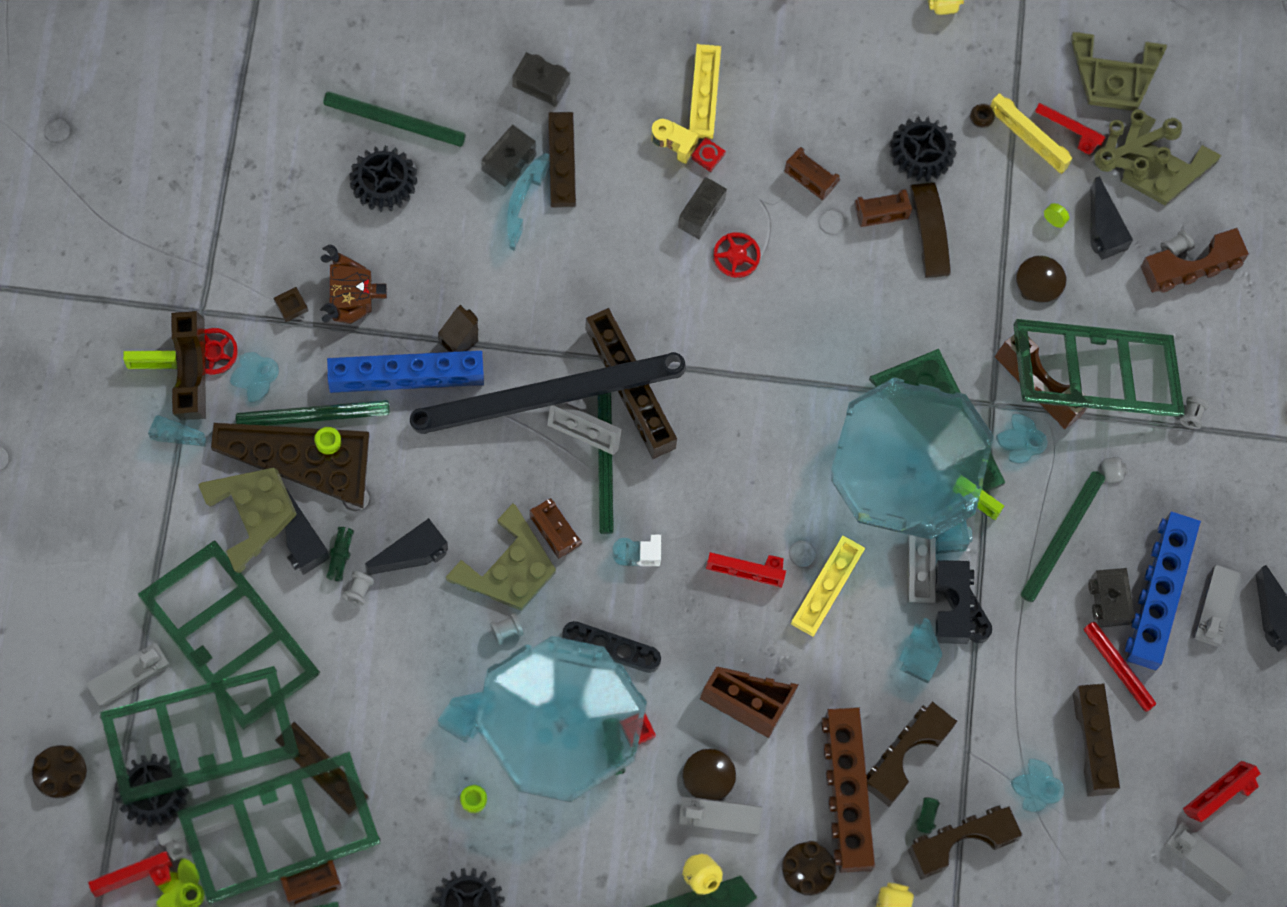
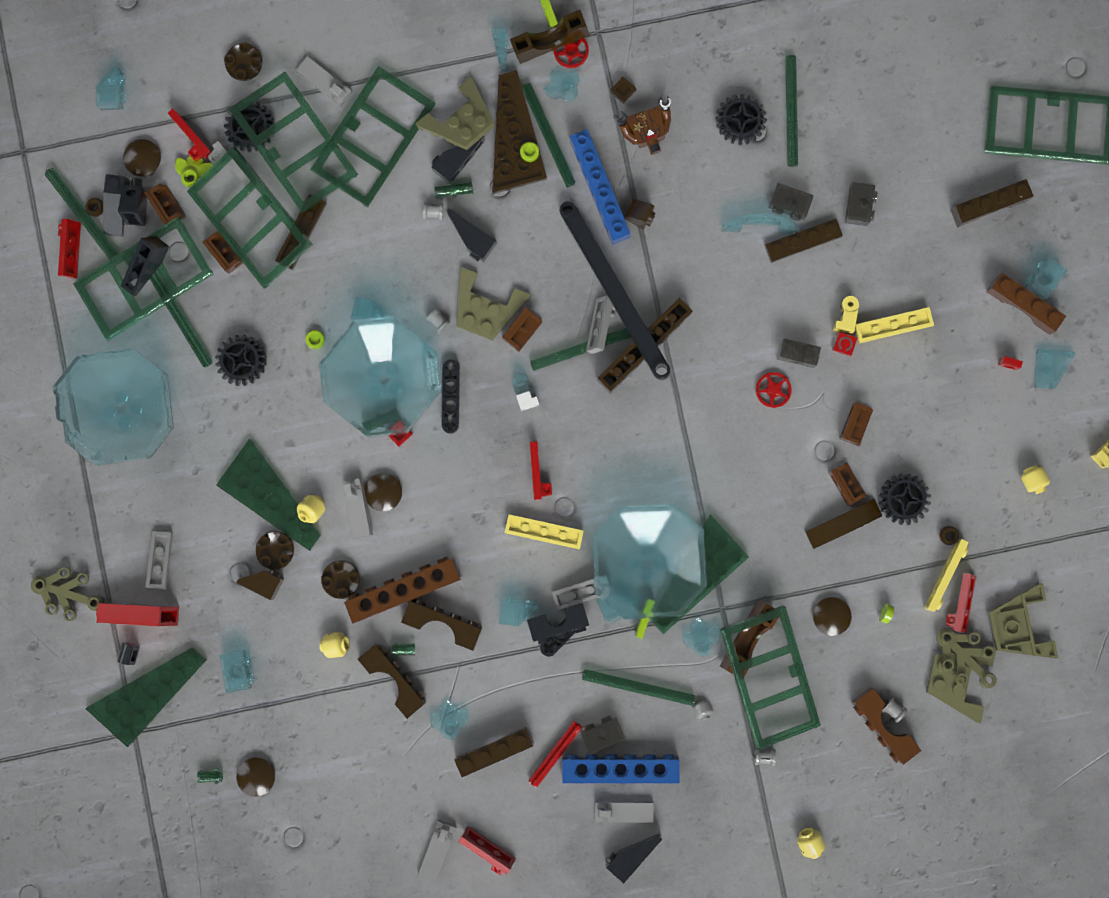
camera: 85 degrees right, 15 degrees up
(748, 699) = (442, 503): reddish brown wedge -> none
(1107, 227) = (888, 654): black slope -> none

